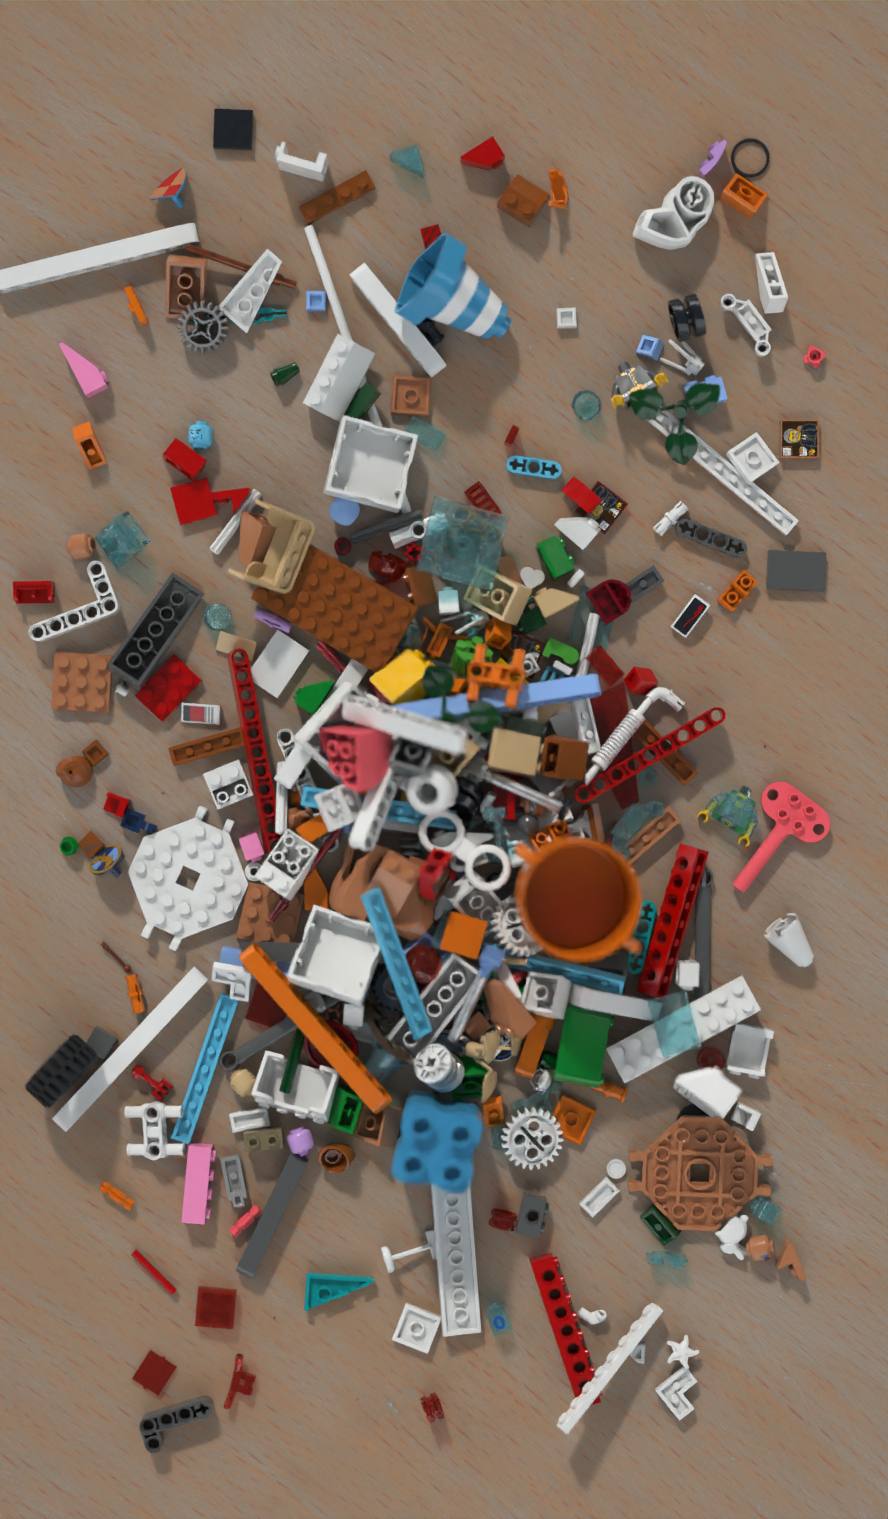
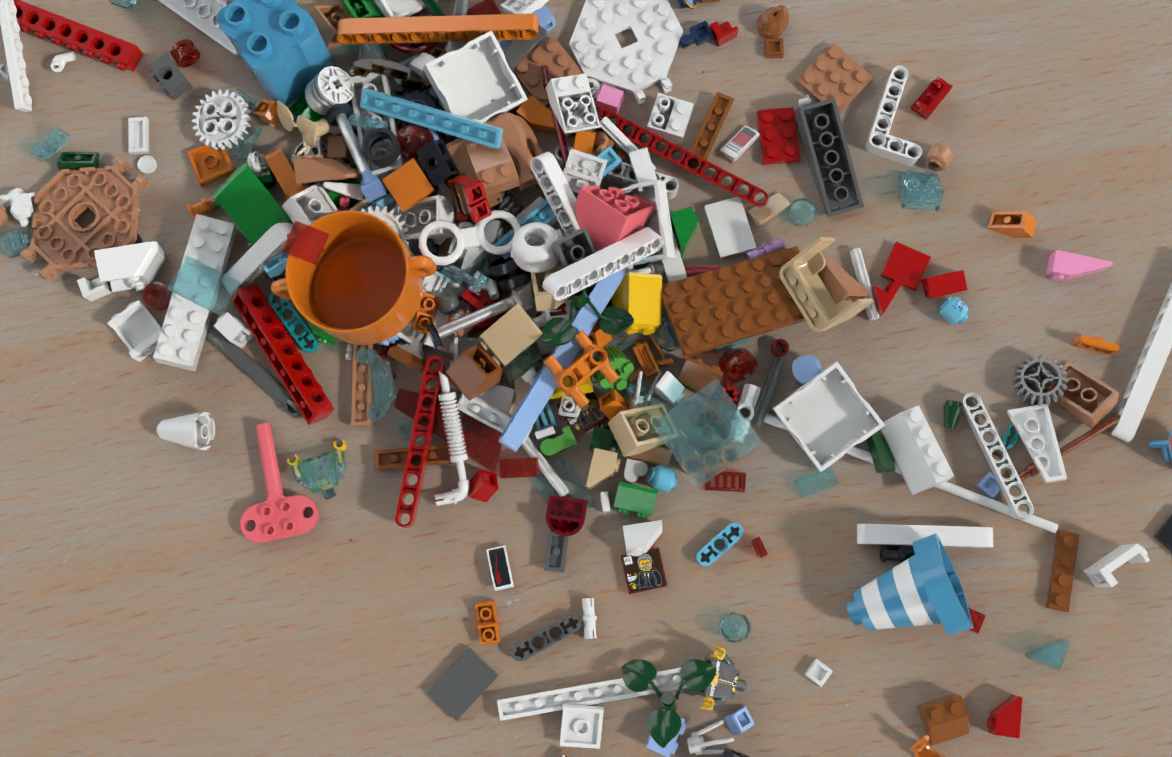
camera: 130 degrees right, 10 degrees down
(292, 304) = (997, 465): none -> white beam
(410, 395) = (855, 496): nougat tile -> none
(427, 916) = (446, 167): none -> black brick
(440, 1011) = (367, 122): none -> clear light blue axle
(447, 995) = (376, 135): none -> black tyre
(521, 551) = (662, 478): none -> medium azure head
(581, 495) = (666, 562): red slope -> none
(586, 949) = (305, 242): none -> clear red piece

